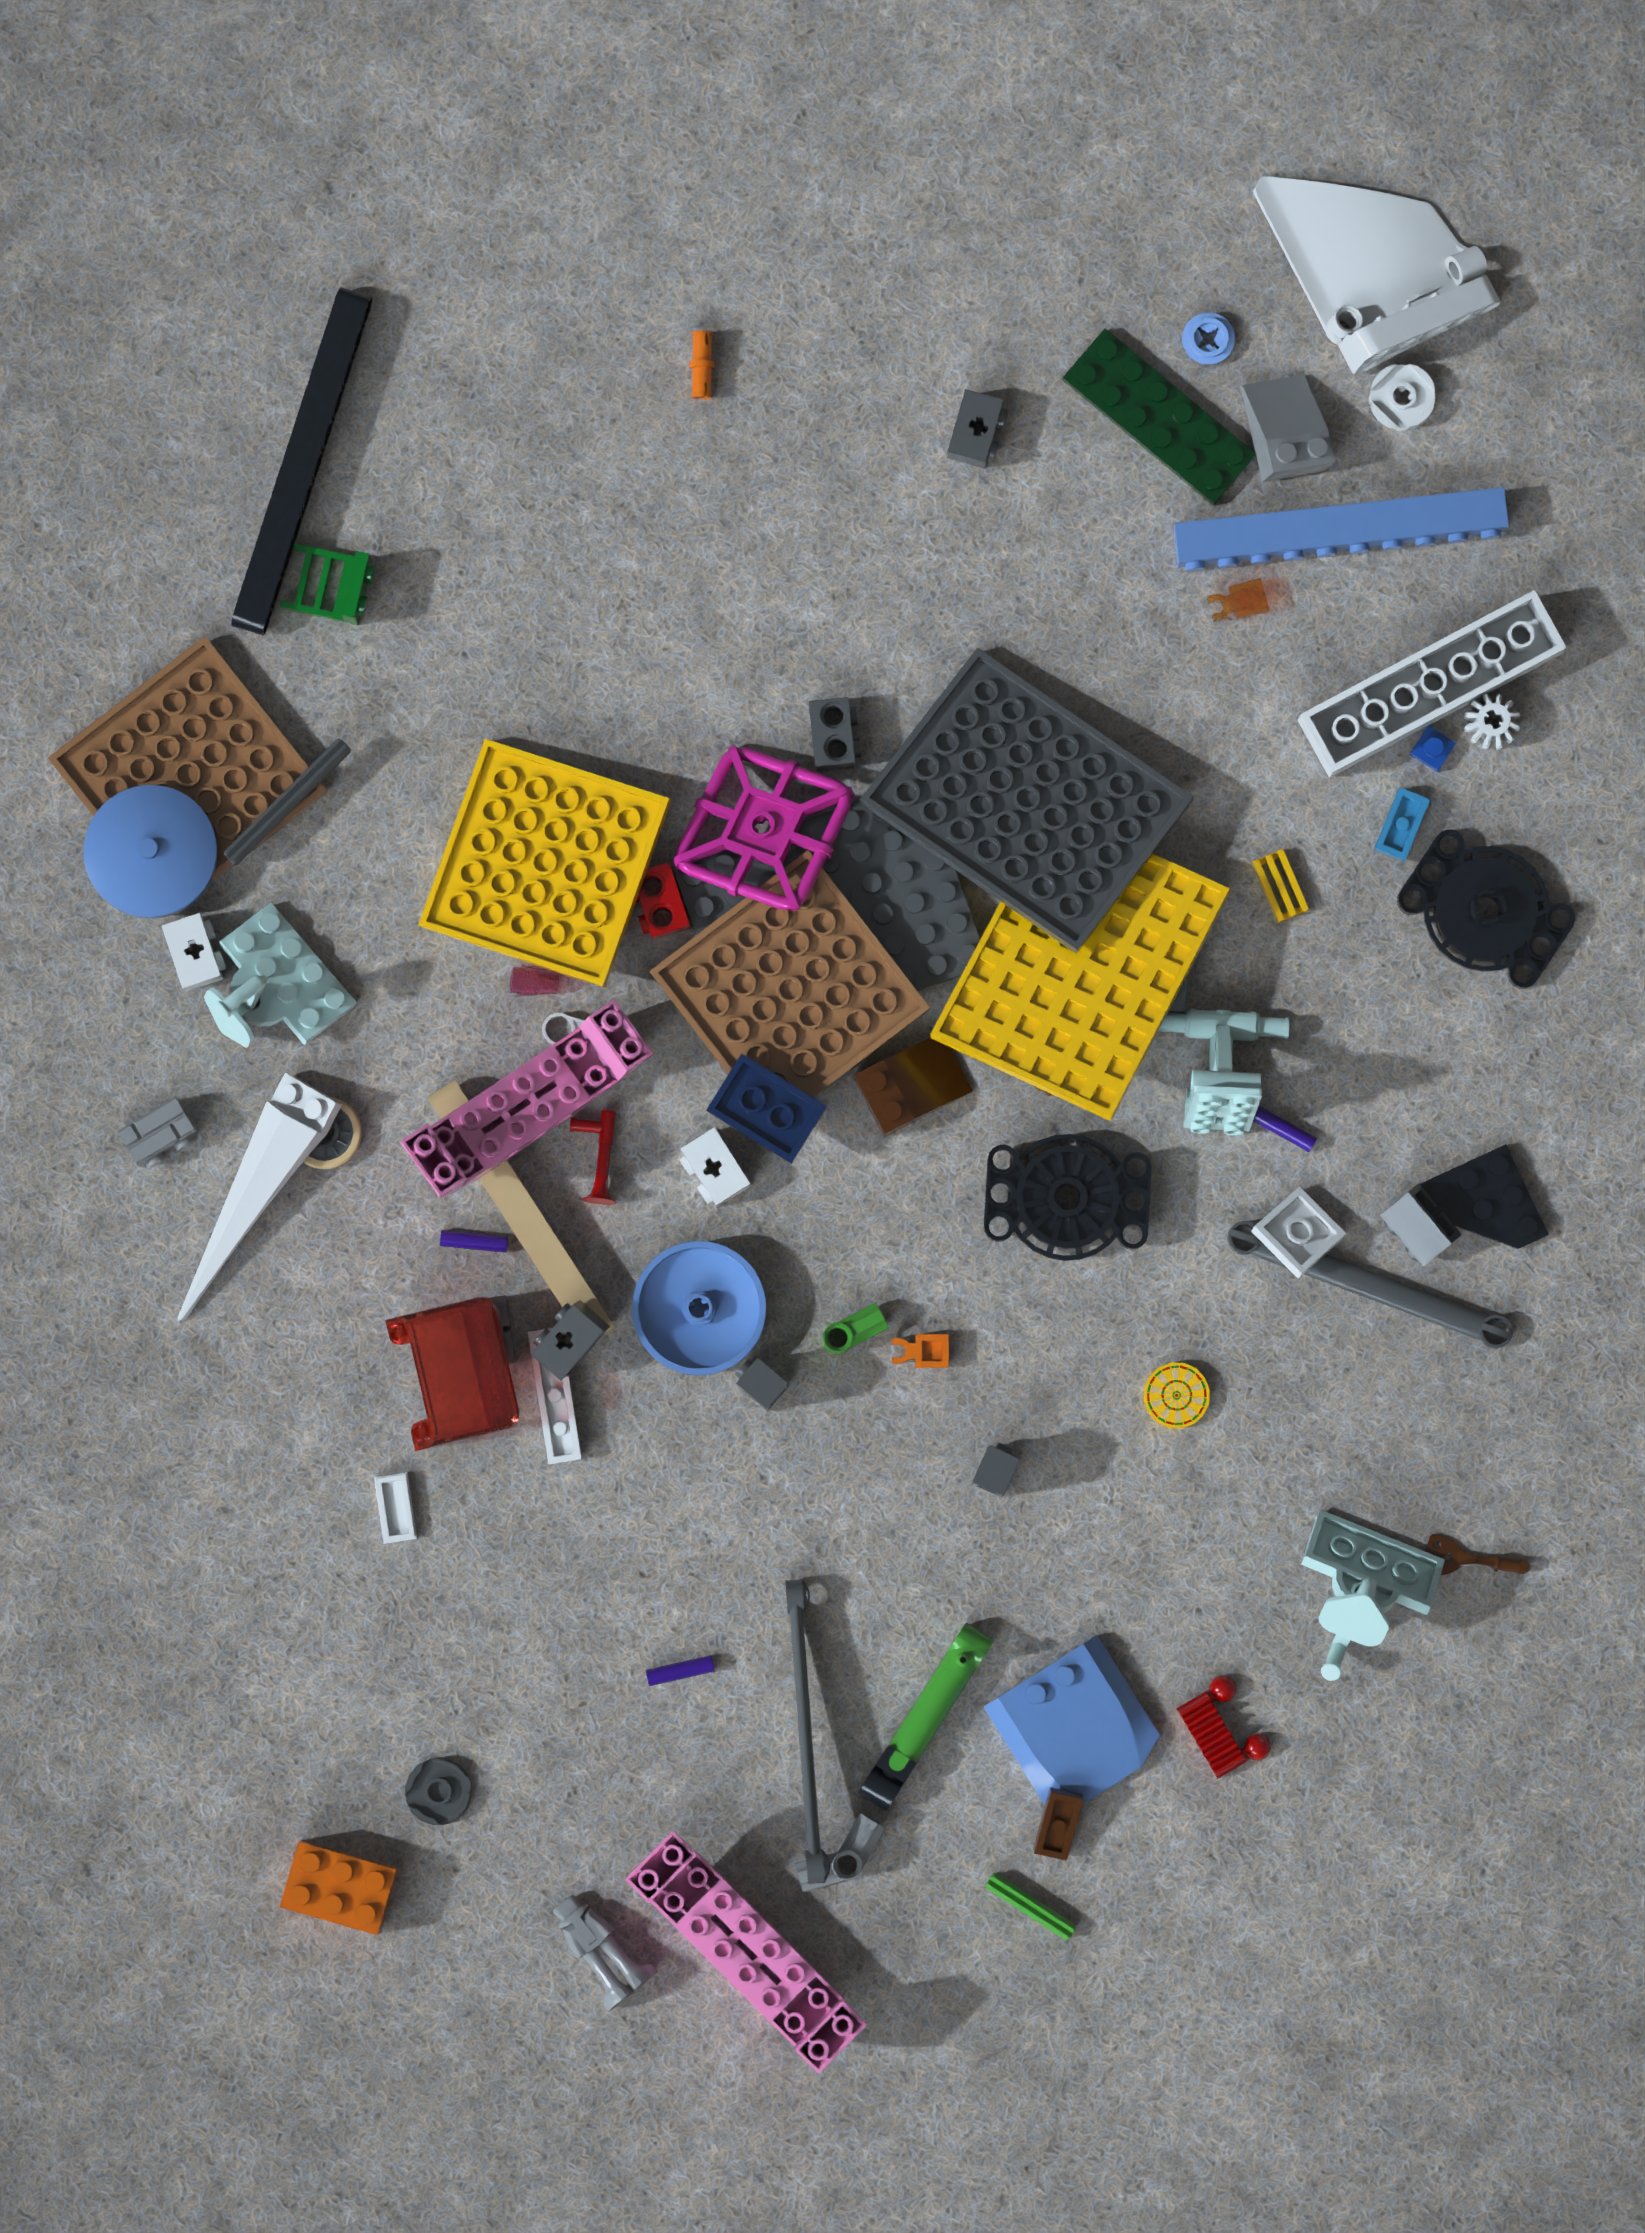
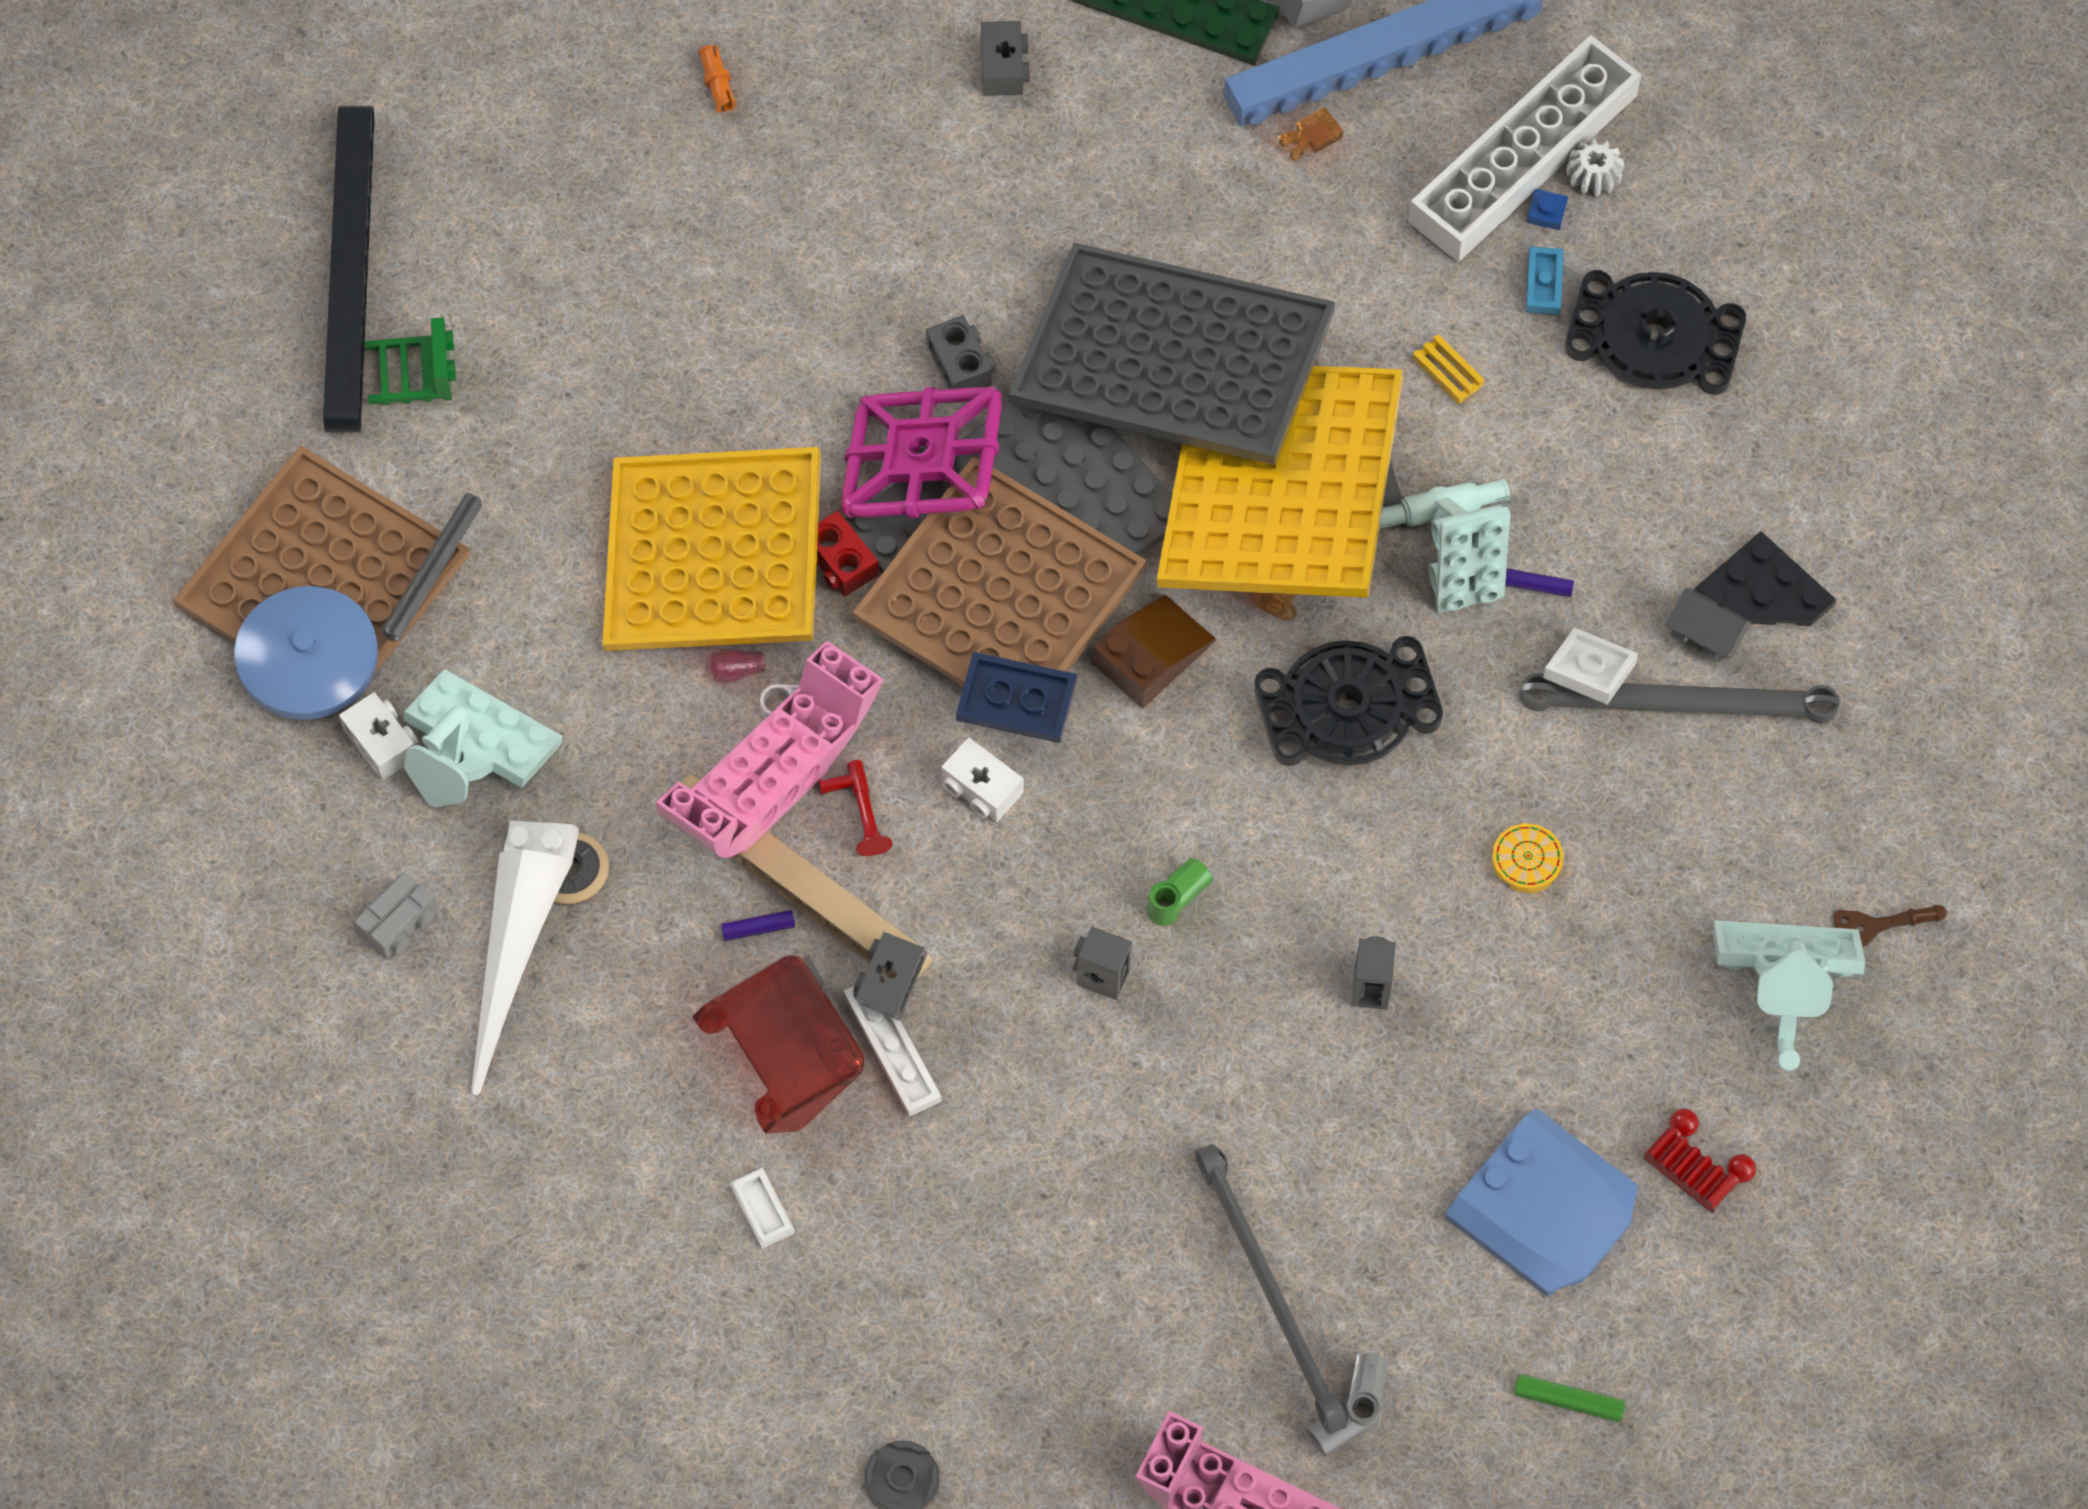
camera: 20 degrees left, 20 degrees down
(680, 1670) = (1116, 1276): dark purple piece -> none
(699, 1308) = (1012, 913): medium blue dish -> none
(925, 1716) = (1389, 1241): bright green piece -> none
(928, 1351) = (1259, 888): orange plate -> none
(1058, 1823) = (1567, 1301): reddish brown plate -> none

